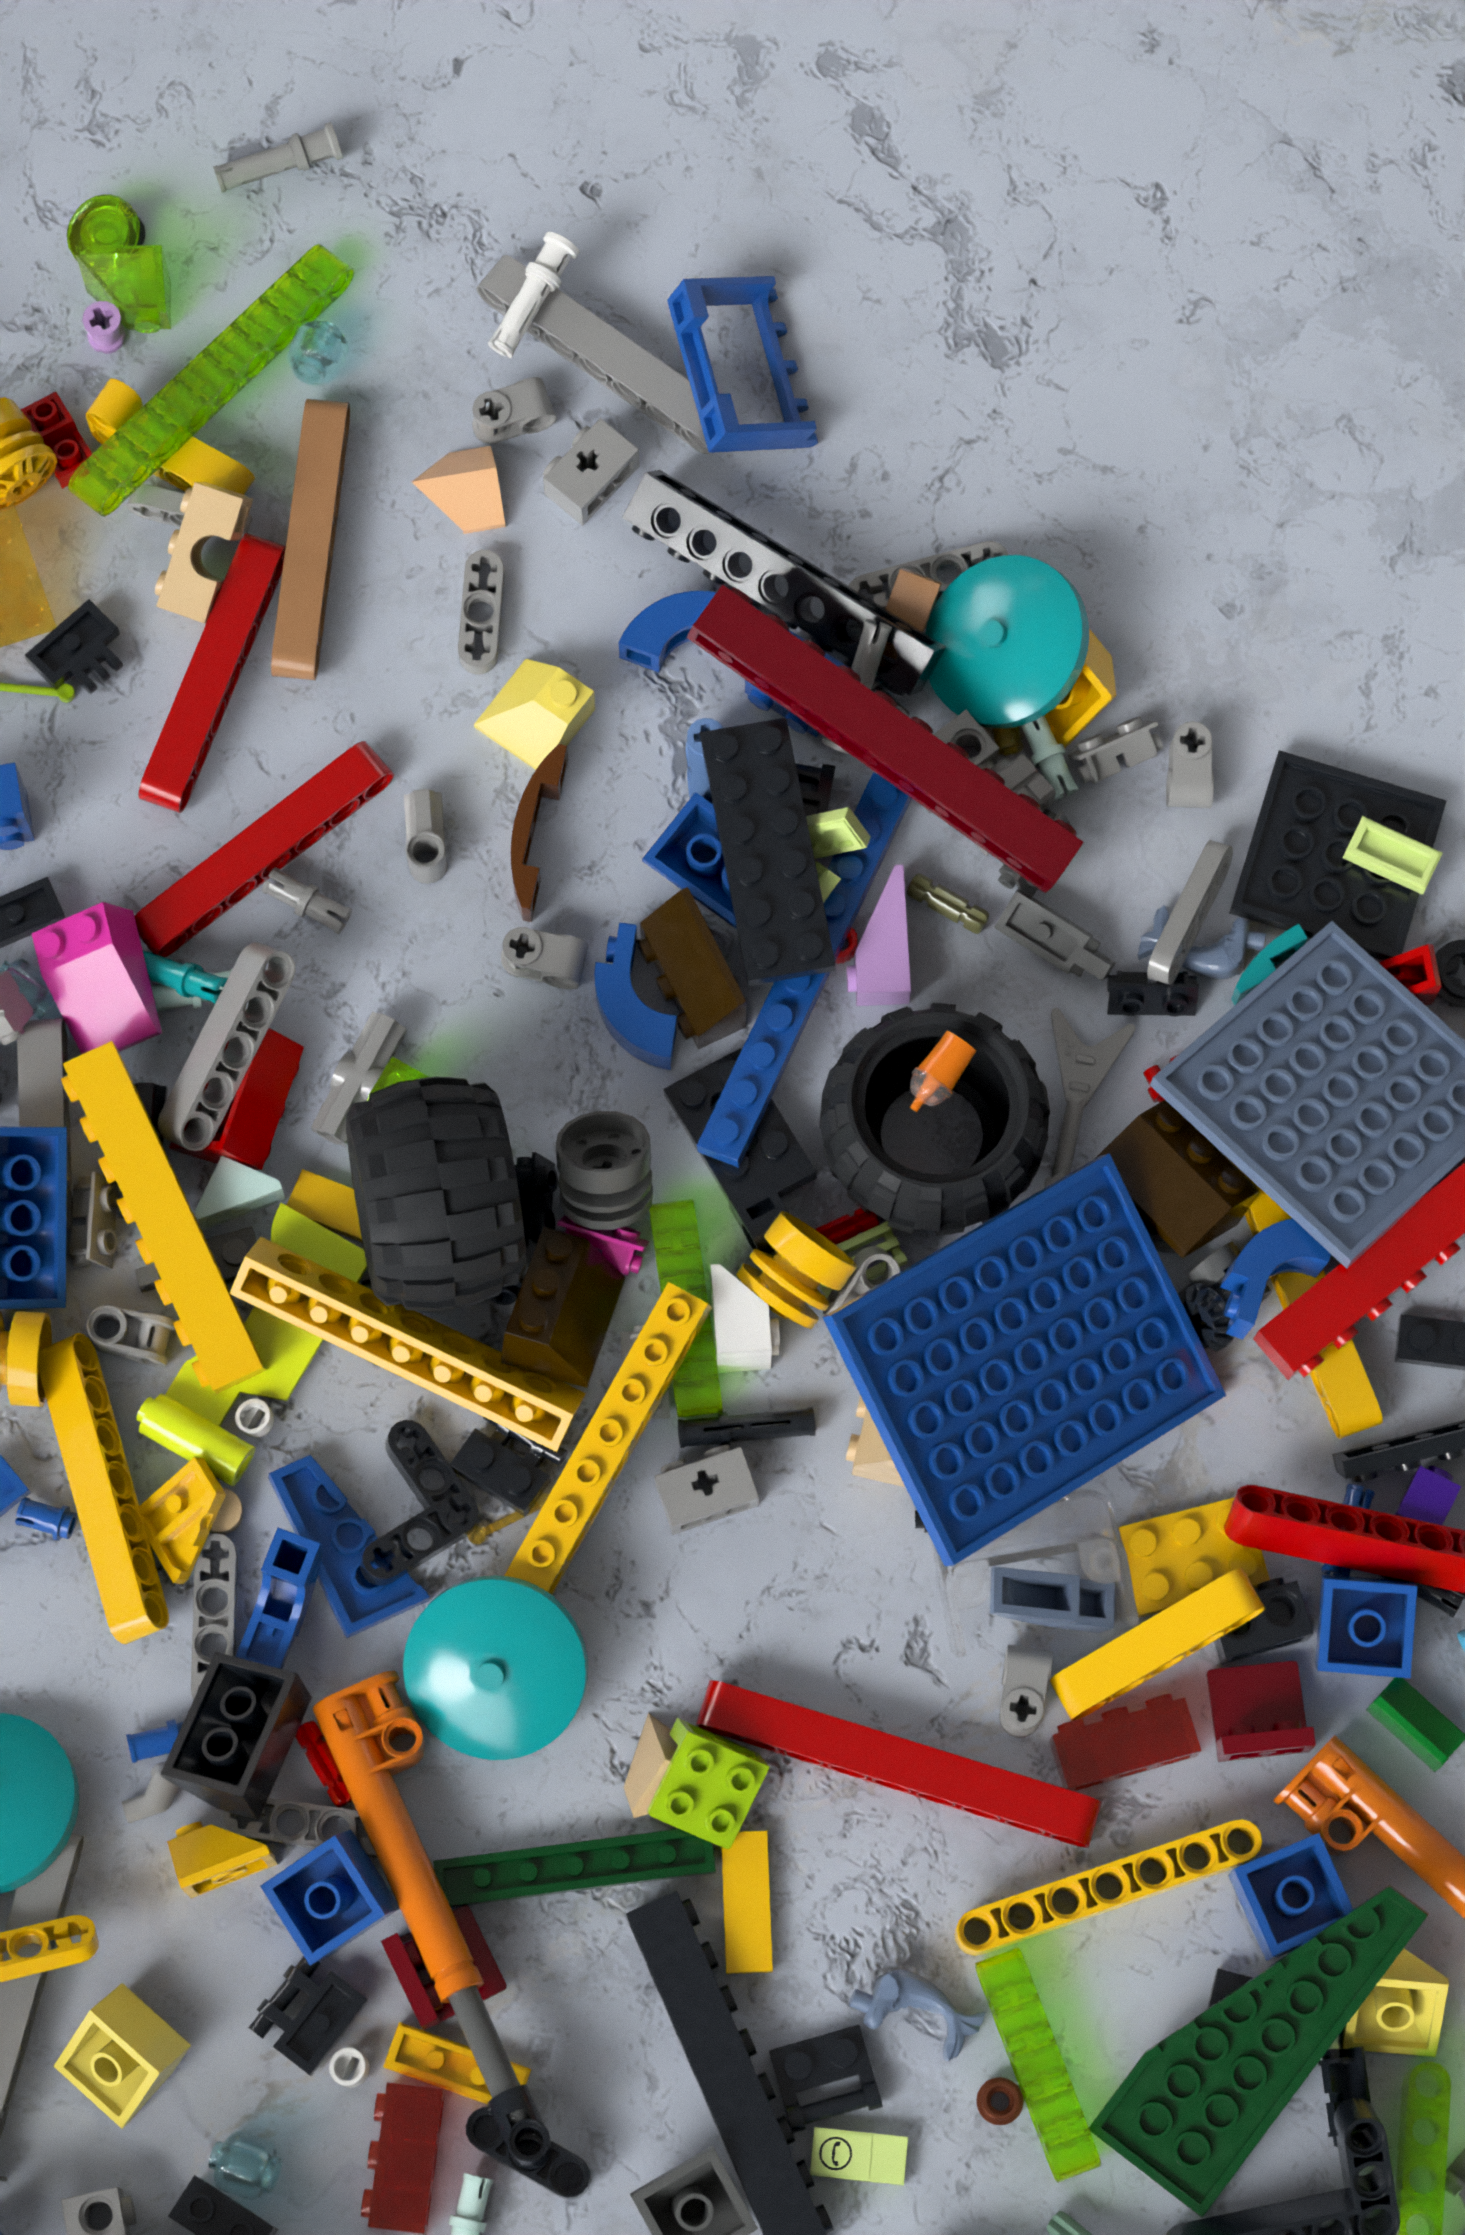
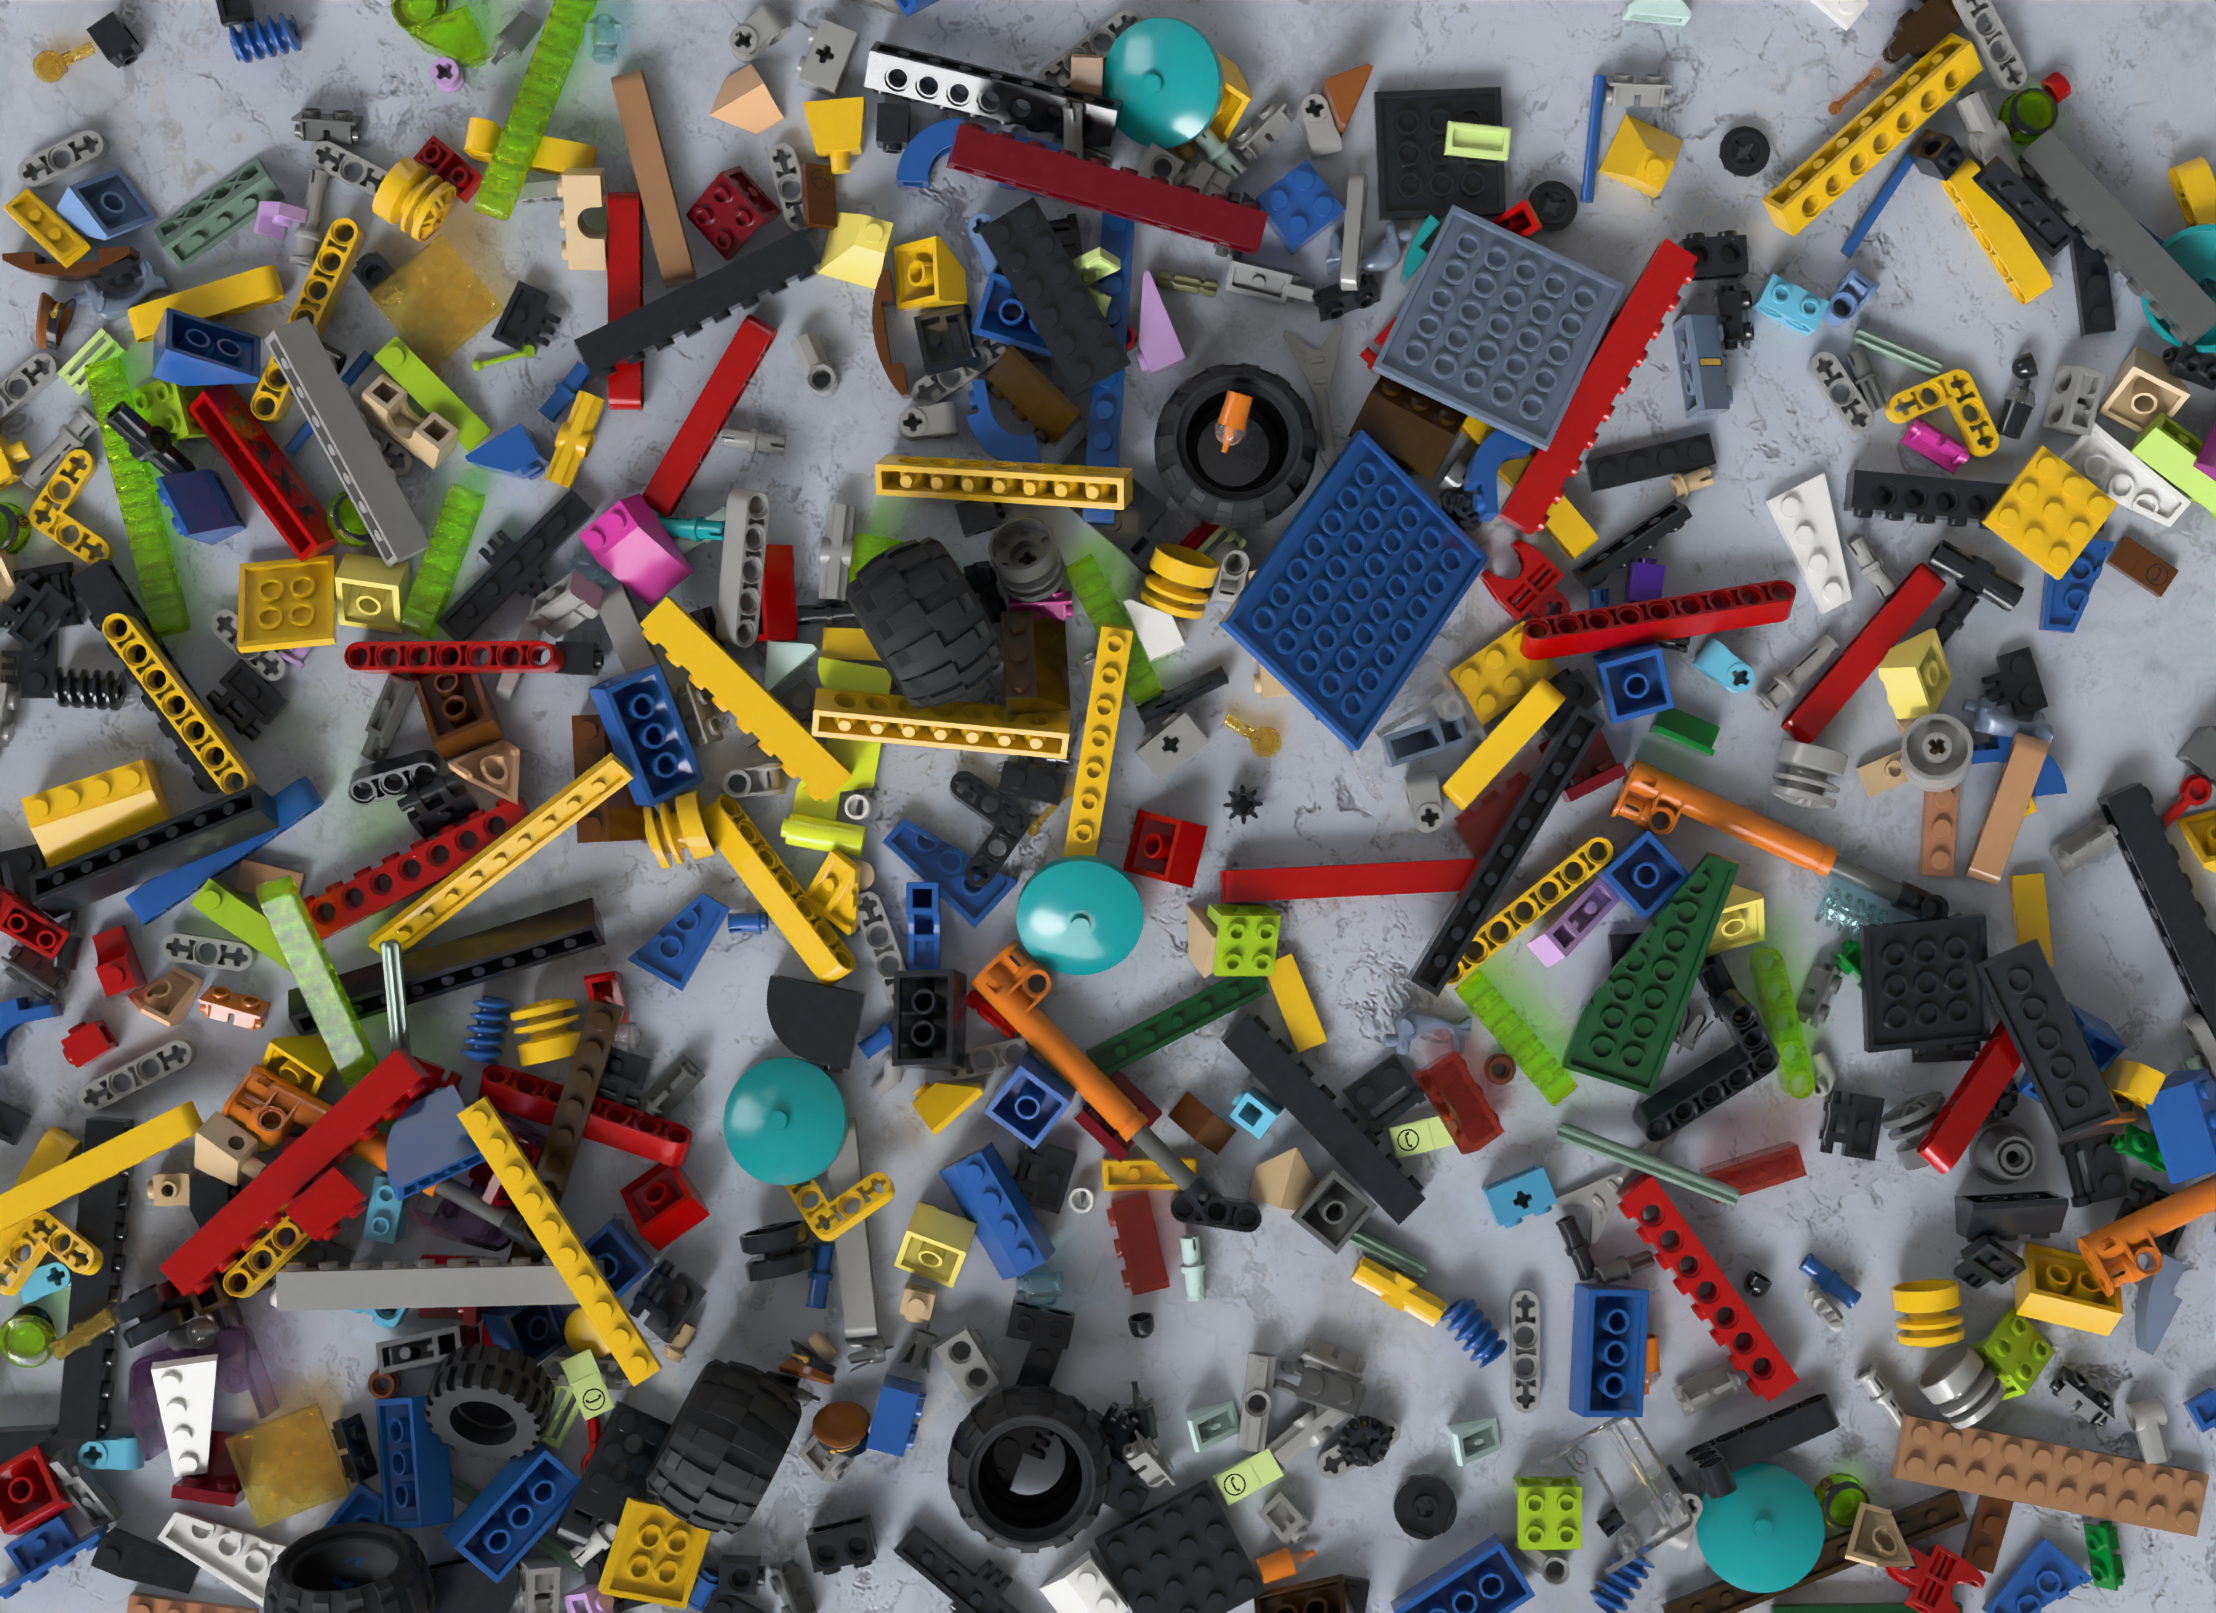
camera: 20 degrees left, 15 degrees up
(47, 2187) = (920, 1349): none -> dark grey piece
(64, 2129) = (917, 1303): none -> tan brick
(77, 818) = (575, 439): none -> yellow piece
(84, 1682) = (815, 1020): none -> black brick
(90, 756) = (565, 392): none -> blue pin
(205, 313) = (514, 38): none -> dark grey piece
(229, 2031) = (1000, 1210): none -> blue slope
(302, 703) = (697, 304): none -> black brick
(311, 1151) = (825, 613): none -> black pin
(393, 611) = (732, 211): none -> dark red bracket
(511, 630) = (818, 196): none -> reddish brown tile
(557, 2024) = (1201, 1123): none -> reddish brown slope
(563, 1096) = (979, 516): none -> black brick
(568, 559) = (837, 129): none -> yellow torso
(593, 862) = (937, 343): none -> black plate
(612, 1058) = (1004, 481): none -> yellow brick
(613, 897) = (967, 376): none -> light grey beam
(614, 776) = (928, 275): none -> yellow slope
(620, 2027) = (1255, 1122): none -> medium azure brick
(639, 2142) = (1283, 1181): none -> tan slope
(640, 579) = (893, 127): none -> black brick
(647, 1623) = (1165, 848): none -> red slope
(781, 1612) = (1248, 797): none -> black gear
(834, 1529) = (1264, 741): none -> clear yellow plate
(925, 2123) = (1459, 1102): none -> clear red brick
(1108, 1785) = (1505, 849): none -> black brick
(1130, 858) = (1299, 207): none -> blue brick
(1172, 1931) = (1573, 923): none -> lavender slope
(1240, 735) = (1344, 92): none -> dark orange slope
(1269, 1455) = (1533, 566): none -> red piece
(1286, 2146) = (1689, 1037): none -> dark grey piece

